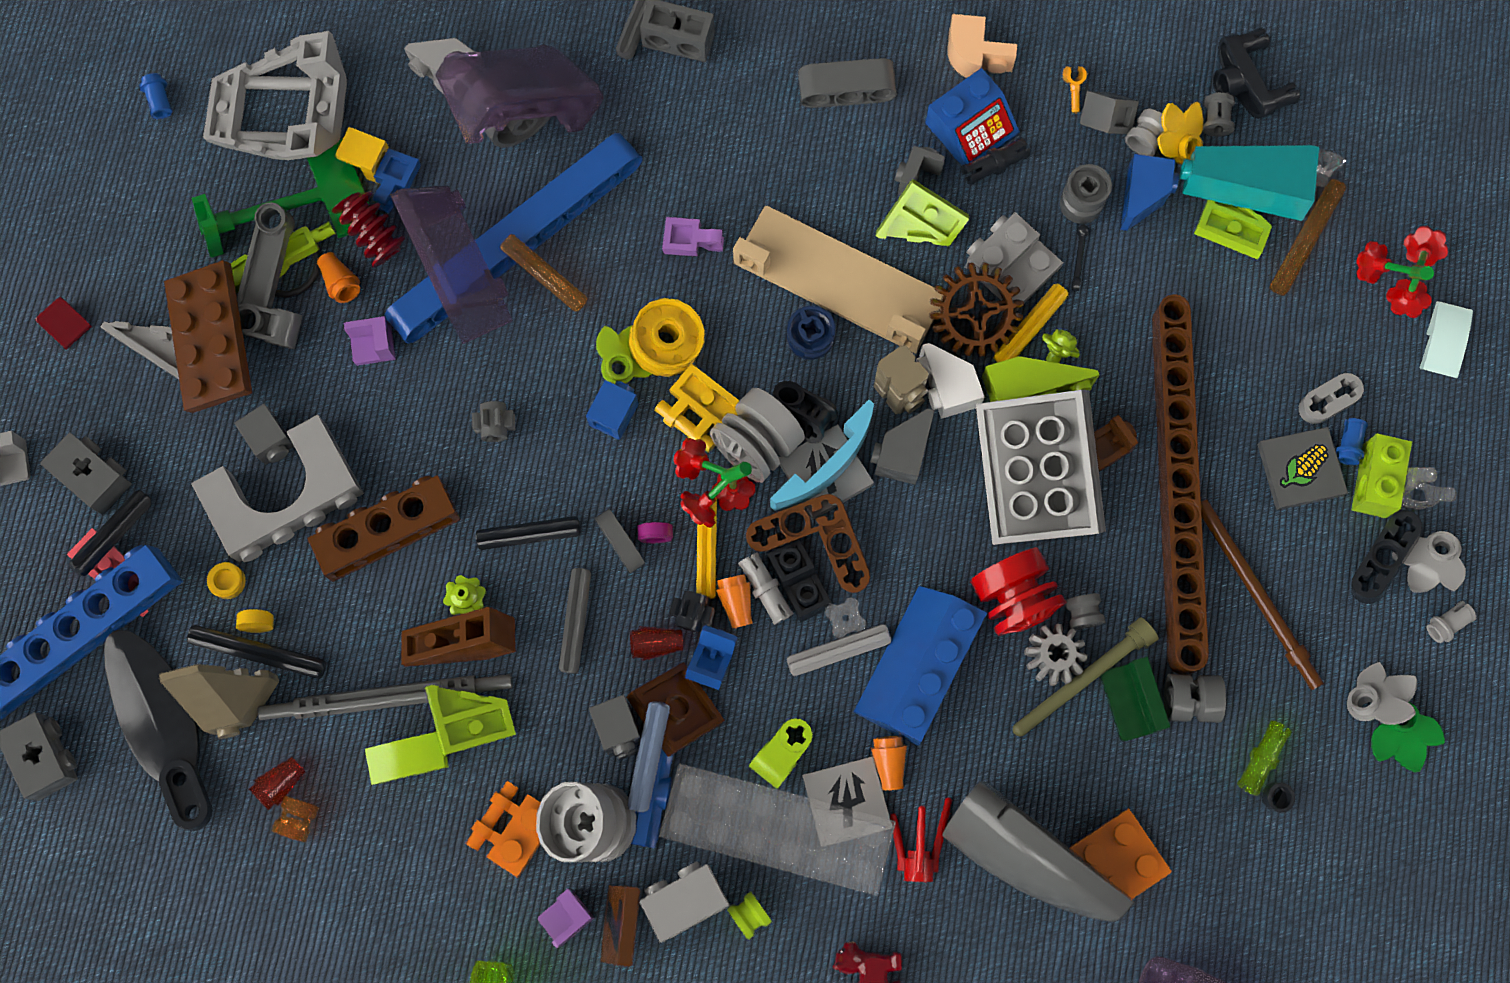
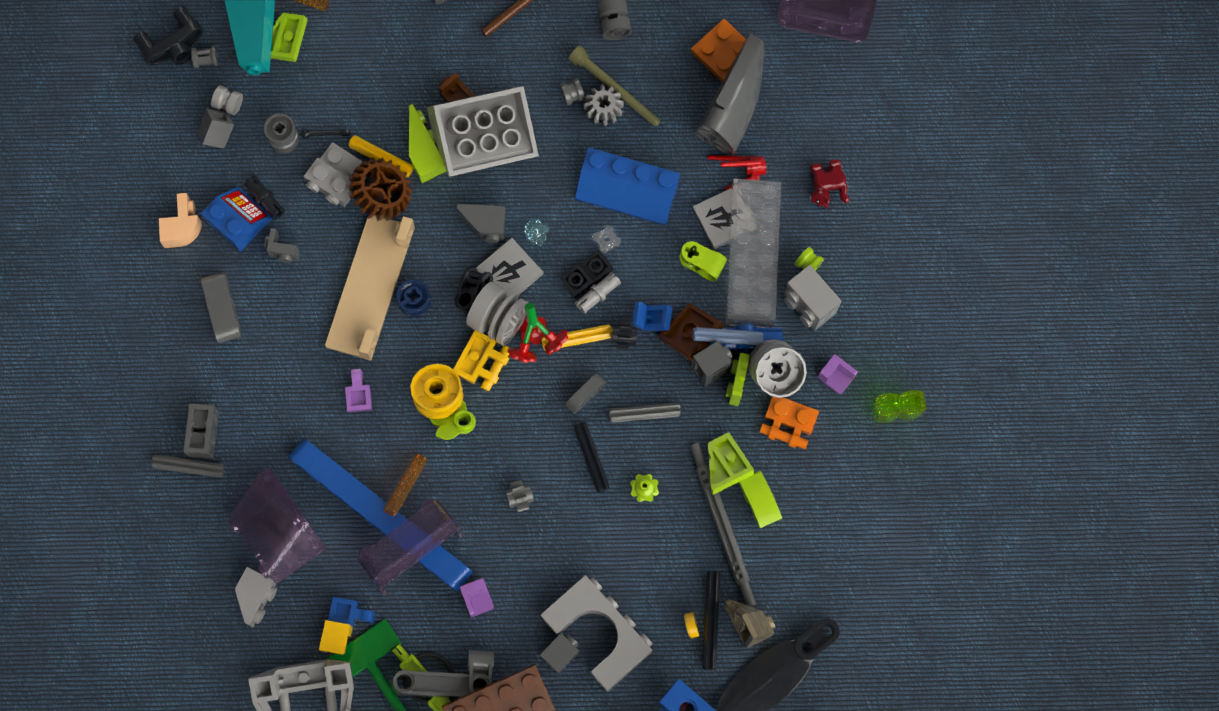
camera: 105 degrees left, 0 degrees up
(226, 580) = (667, 655): yellow tile -> none
(276, 783) = (795, 581): clear red cone -> none
(293, 827) = (821, 562): clear orange wheel -> none
(338, 279) = (434, 632): orange cone -> none
(369, 227) = (391, 614): dark red piece -> none
(403, 531) = (590, 519): reddish brown brick -> none
(460, 638) = (675, 484): reddish brown slope -> none
(577, 758) = (735, 389): none -> lime wing
(613, 408) = (494, 417): blue brick -> none
(620, 925) = (834, 335): reddish brown tile -> none
(654, 642) = (649, 357): clear red cone -> none
(655, 532) = (575, 371): magenta tile -> none
(736, 600) = (608, 310): orange cone -> none
(797, 491) = (479, 250): medium azure slope -> none
(827, 530) = (550, 260): reddish brown beam -> none
(838, 650) = (628, 240): light grey axle -> none
(875, 517) = (536, 232): none -> clear light blue plant
(890, 758) = (693, 194): orange cone -> none
(901, 380) = (440, 227): dark tan brick -> none
(923, 217) = (316, 237): lime wing -> none
(951, 381) = (432, 199): white slope -> none
(1018, 592) = (573, 129): red wheel -> none
(1061, 345) = (392, 133): lime plant -> none
(1074, 86) = (193, 153): light orange hand -> none
(1134, 700) = (621, 54): dark green panel -> none
(1147, 187) = (269, 96): blue slope -> none
(1171, 496) = (465, 55): reddish brown beam -> none
(1180, 132) = (222, 78): yellow plate -> none

